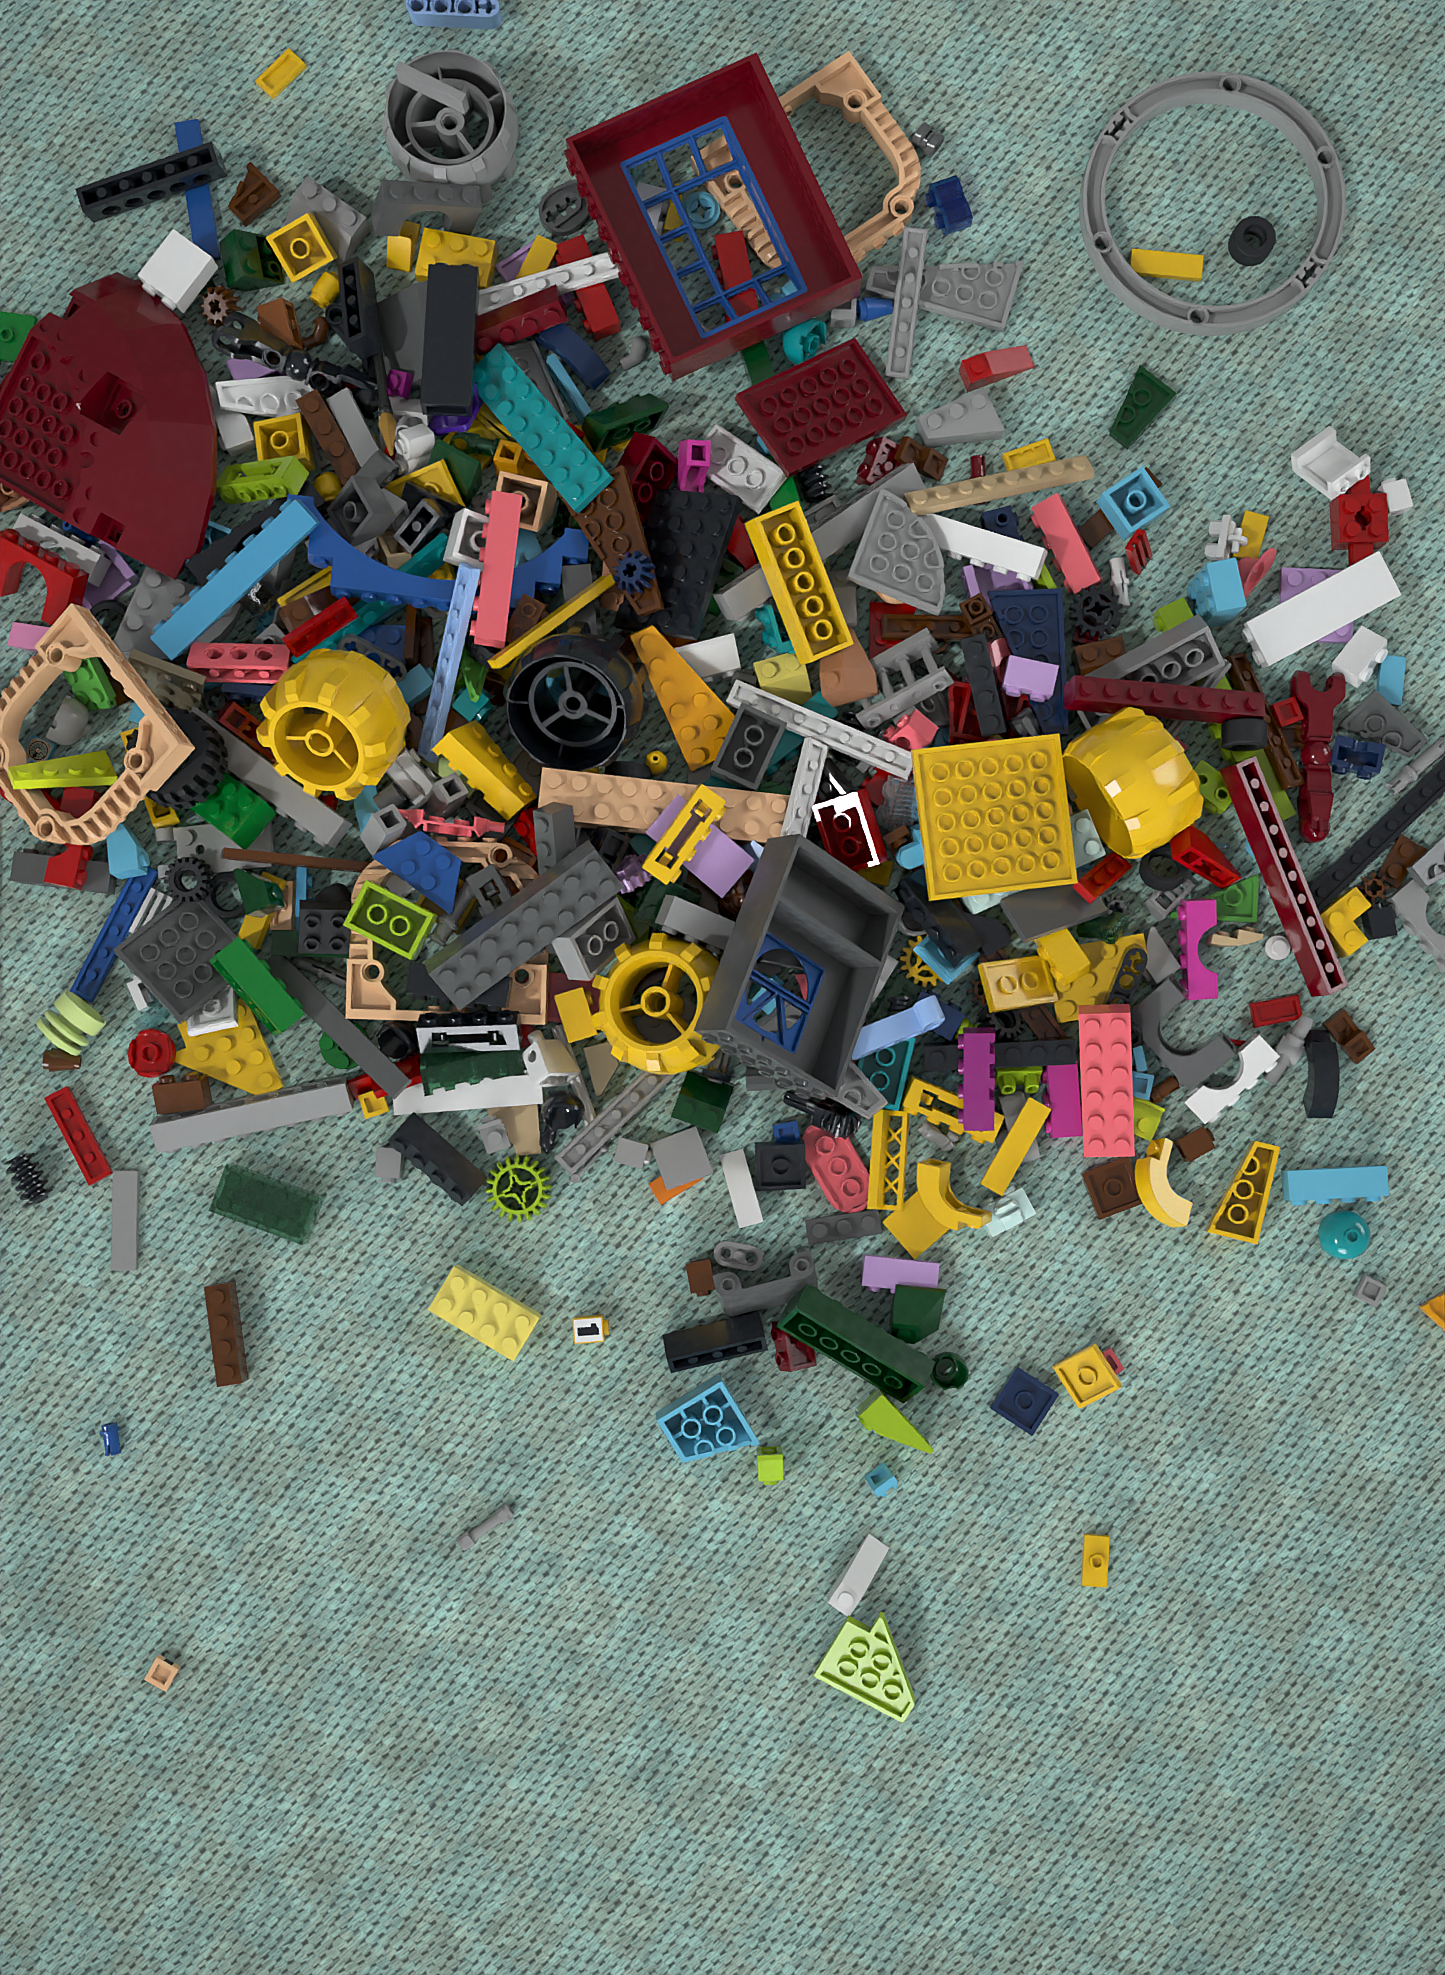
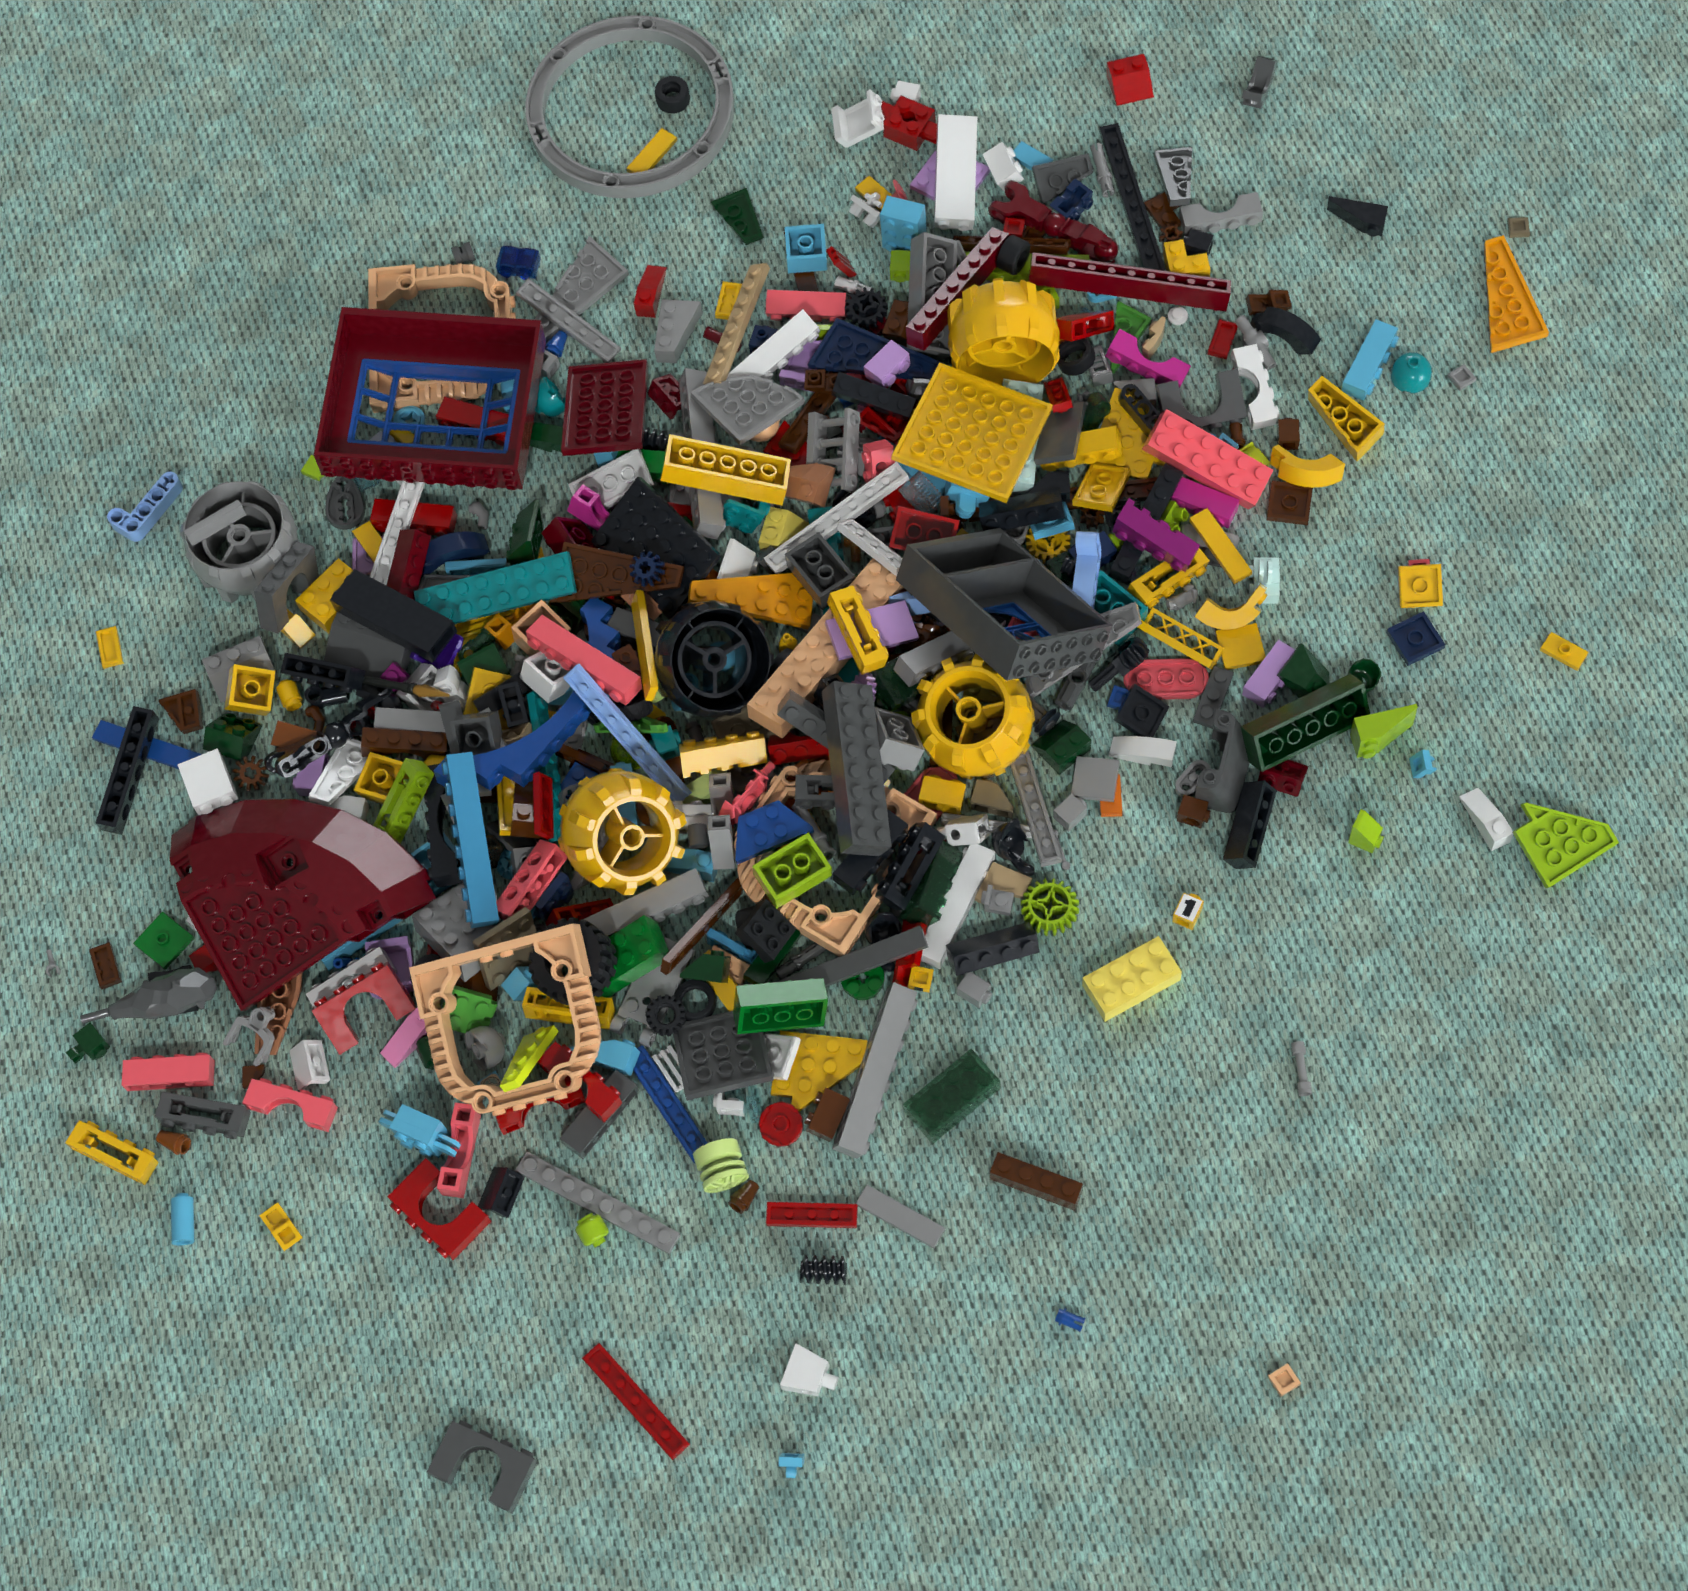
camera: 50 degrees left, 20 degrees down
(705, 1422) = (1307, 861): medium azure wedge -> none
(926, 460) = (675, 369): reddish brown slope -> none

